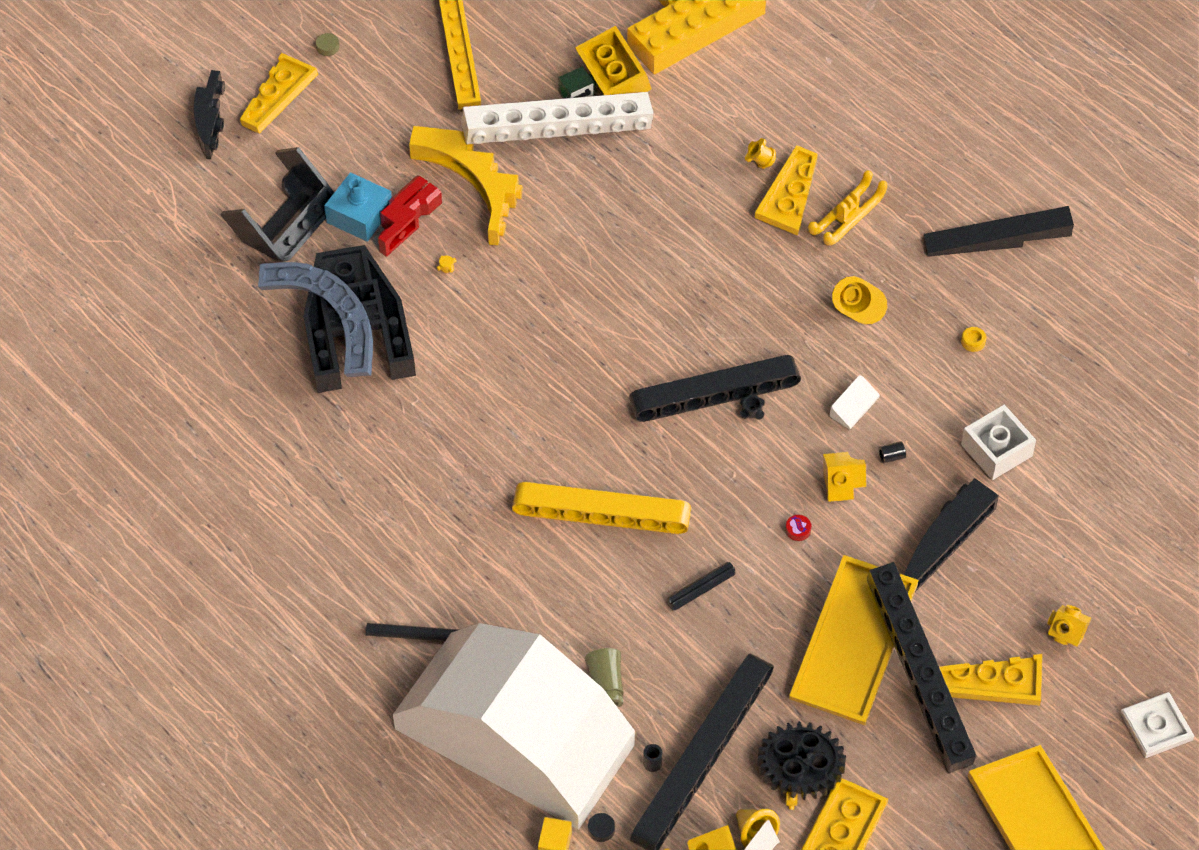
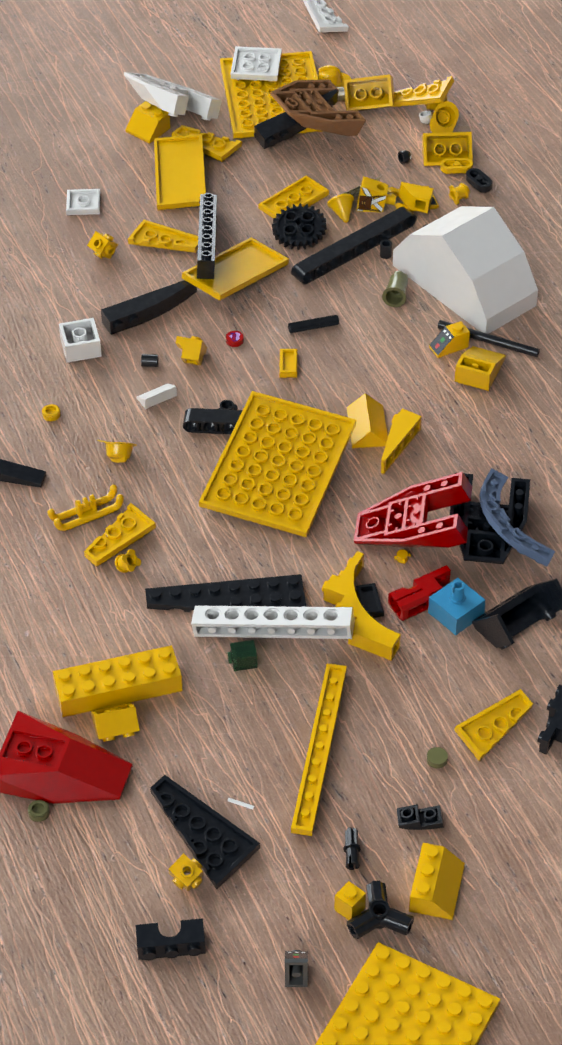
camera: 160 degrees left, 10 degrees down
(439, 569) = (478, 367): none -> yellow slope
(457, 280) = (403, 516): none -> red wedge
(464, 198) = (370, 599): none -> black tile
(495, 605) = (450, 340): none -> yellow slope
(507, 435) = (402, 431): none -> yellow slope
(558, 437) = (370, 423): none -> yellow slope
(593, 165) = (265, 591): none -> black wing
(601, 508) = (358, 375): yellow beam -> none
(613, 64) = (206, 655): yellow slope -> none
(643, 327) = (278, 463): none -> yellow plate
(706, 510) = (288, 363): none -> yellow tile

